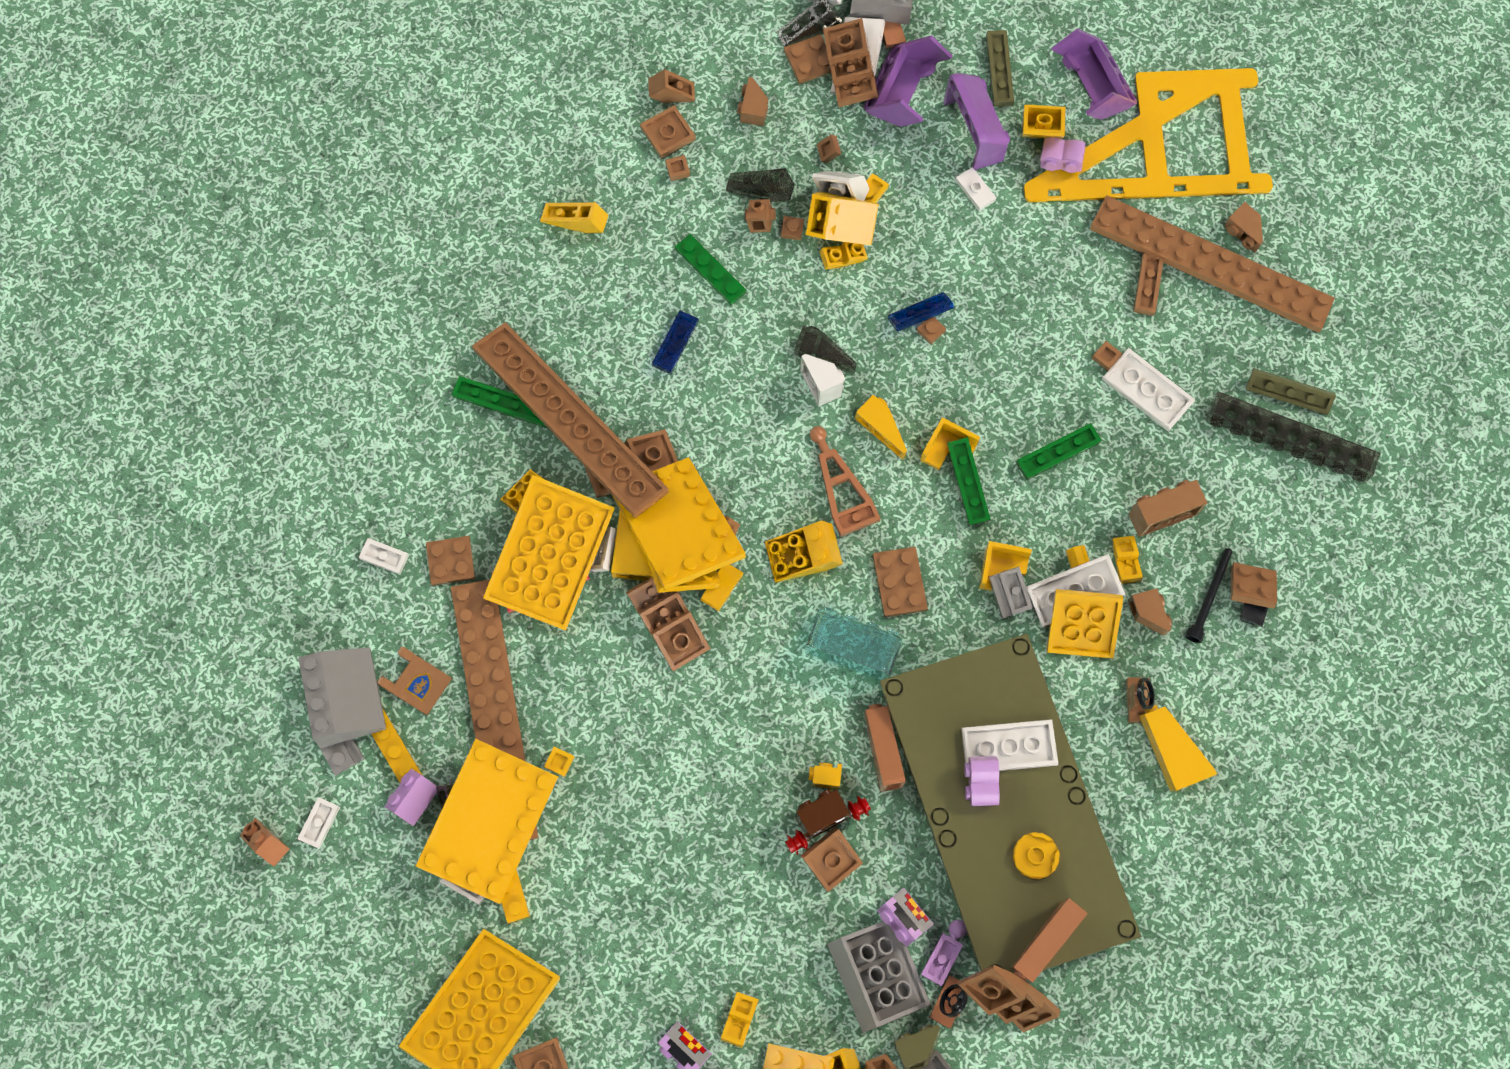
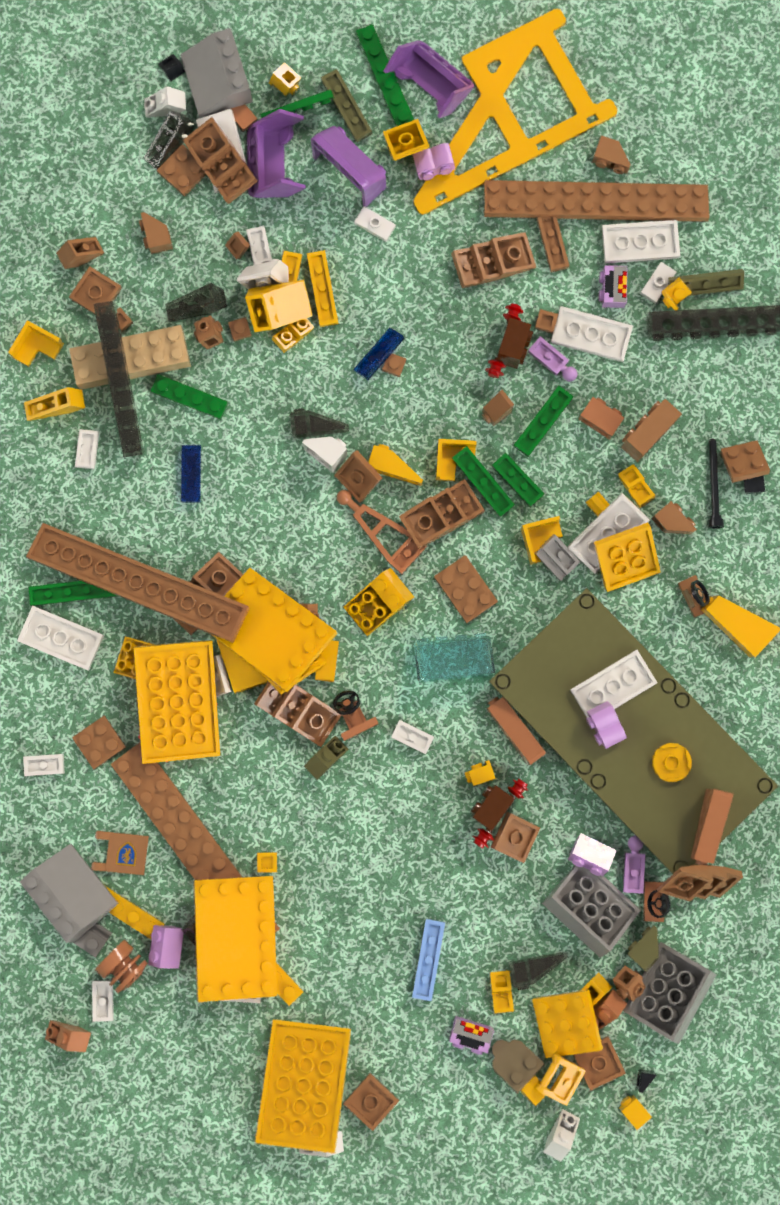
camera: 25 degrees left, 10 degrees up
(354, 789) = (121, 966): none -> nougat wheel
(465, 440) = (60, 638): none -> white plate
(584, 148) = (34, 339): none -> yellow panel
(584, 273) = (87, 449): none -> white plate
(649, 215) = (119, 378): none -> clear smoke brick
(670, 205) = (145, 356): none -> tan brick
(672, 683) = (326, 757): none -> olive slope
(677, 945) = (428, 959): none -> light blue plate
(721, 655) = (353, 715): none -> nougat piece
(772, 705) = (412, 737): none -> white plate
(780, 1010) = (530, 970): none -> clear smoke slope
(842, 418) = (358, 476): none -> medium nougat plate
(850, 156) = (259, 245): none -> white plate
(893, 226) = (322, 288): none -> yellow plate
(910, 494) = (441, 513): none -> medium nougat slope
(950, 19) = (285, 80): none -> yellow brick
(961, 47) = (306, 104): none -> green plate
(1005, 497) = (517, 480): none -> green plate
(1017, 416) = (497, 408): none -> medium nougat slope
(1051, 61) = (386, 81): none -> green plate
(1062, 360) = (513, 343): none -> reddish brown brick
(1080, 274) = (493, 260): none -> medium nougat slope
(1096, 395) = (552, 359): none -> lavender plate
(1121, 474) = (601, 417): none -> nougat brick
(1192, 353) = (613, 286): none -> brick
(1239, 370) = (657, 282): none -> white plate
(1240, 322) = (641, 241): none -> white plate
(1254, 386) = (675, 293): none -> yellow bracket

